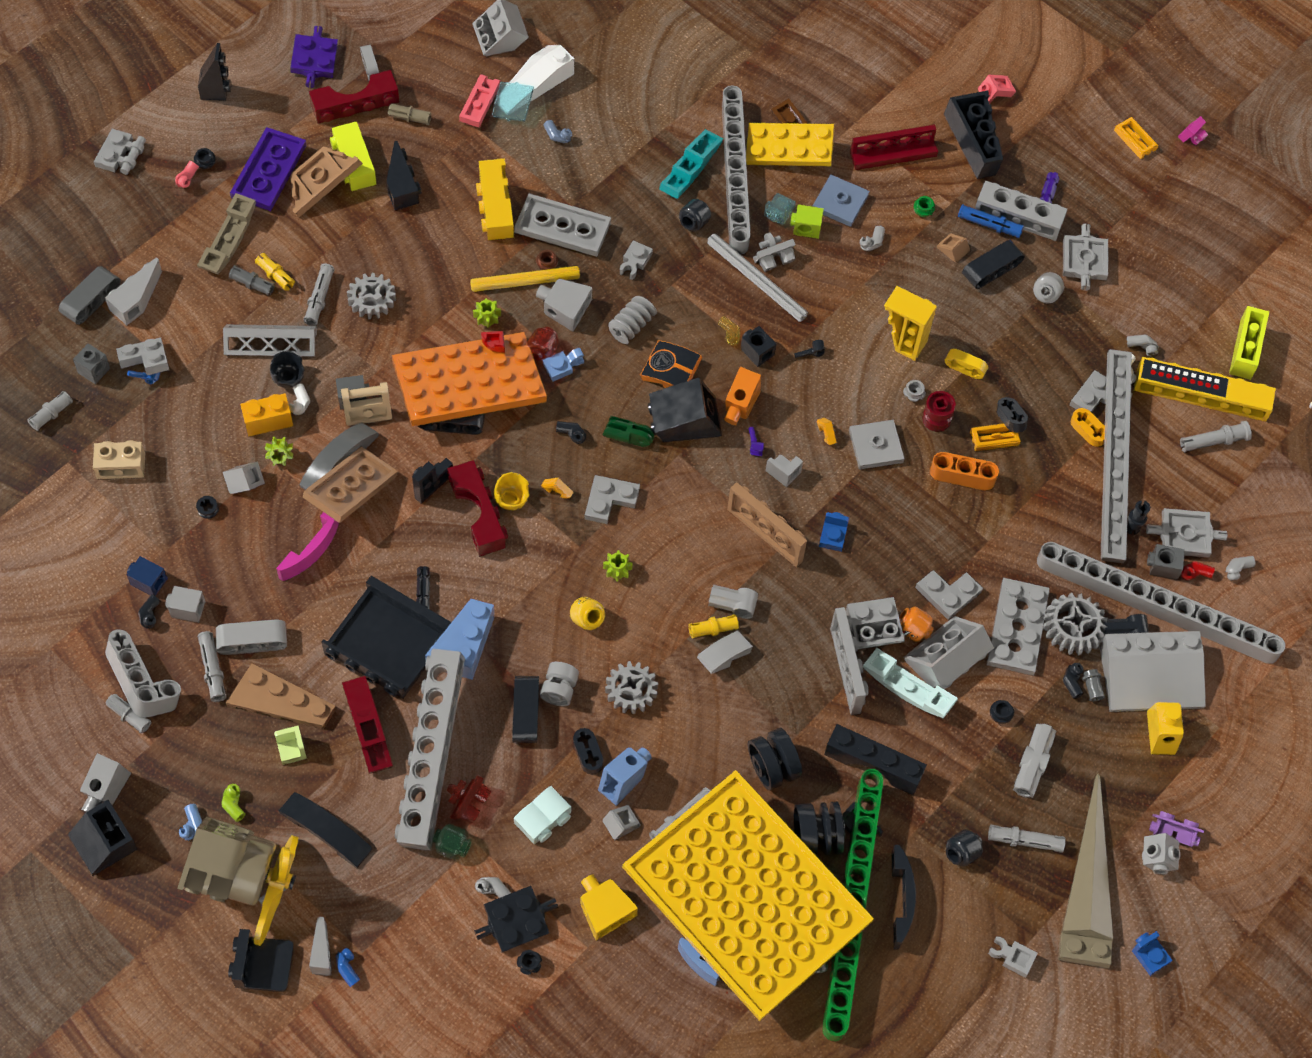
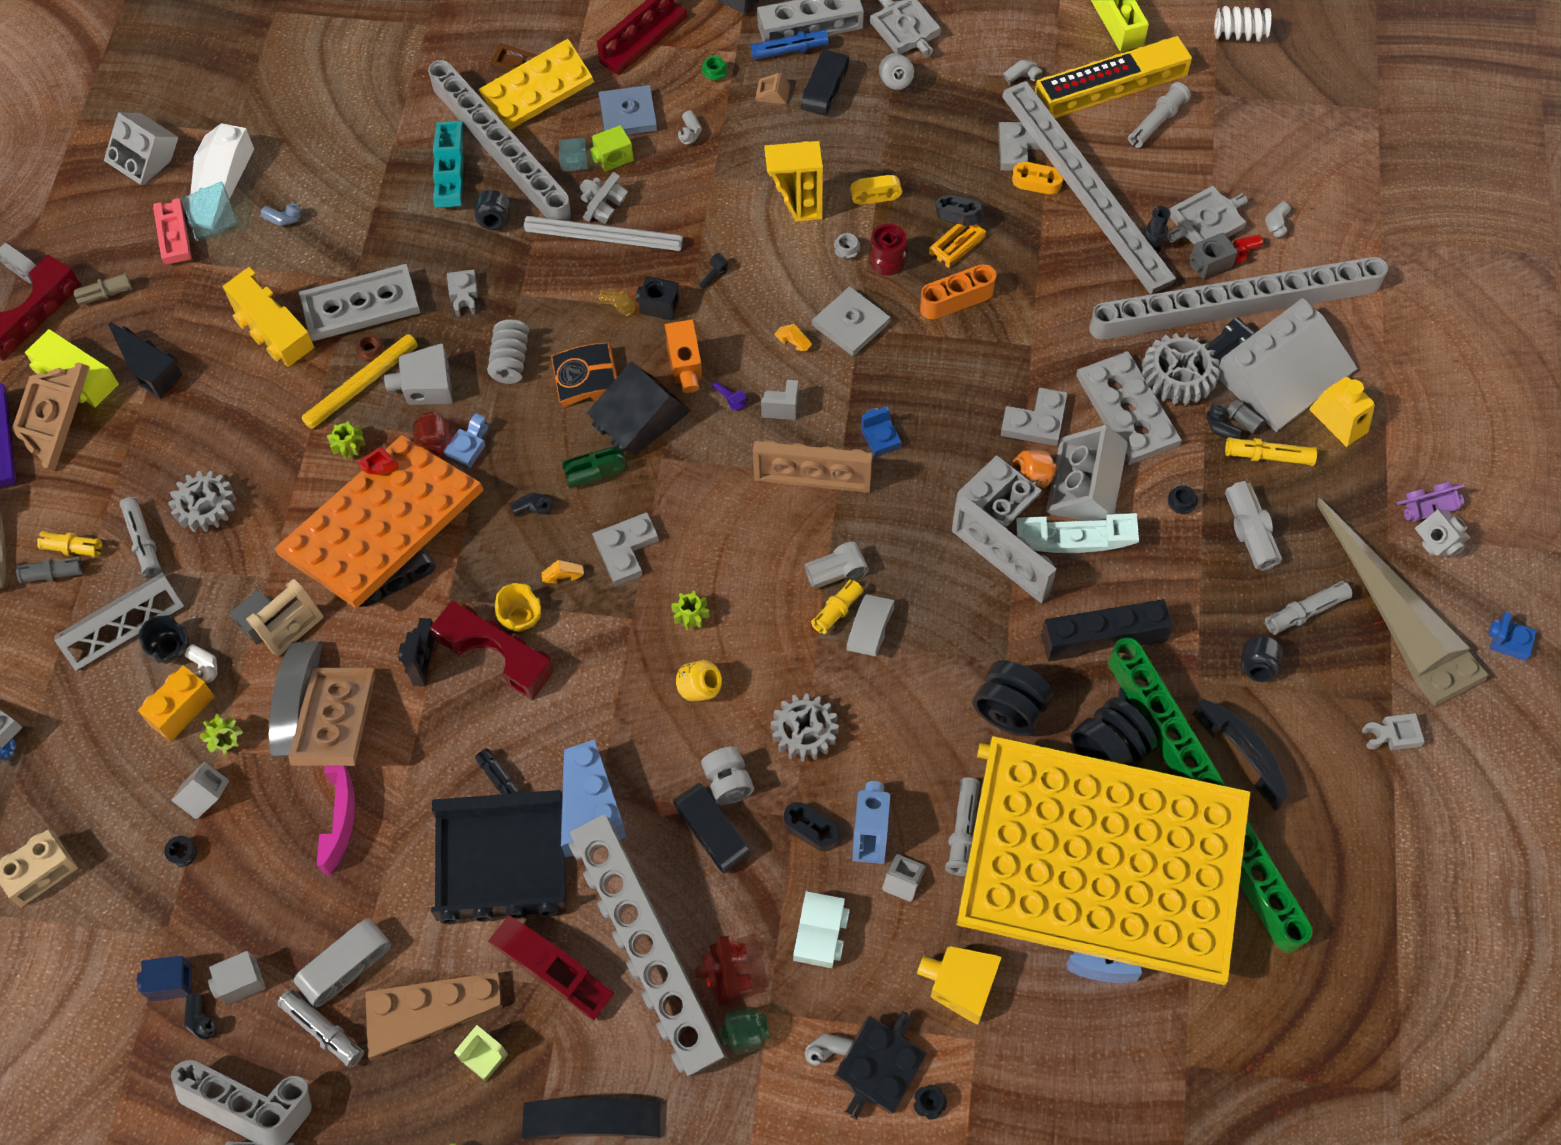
camera: 30 degrees left, 0 degrees up
(1092, 721) = (1270, 451): none -> yellow pin

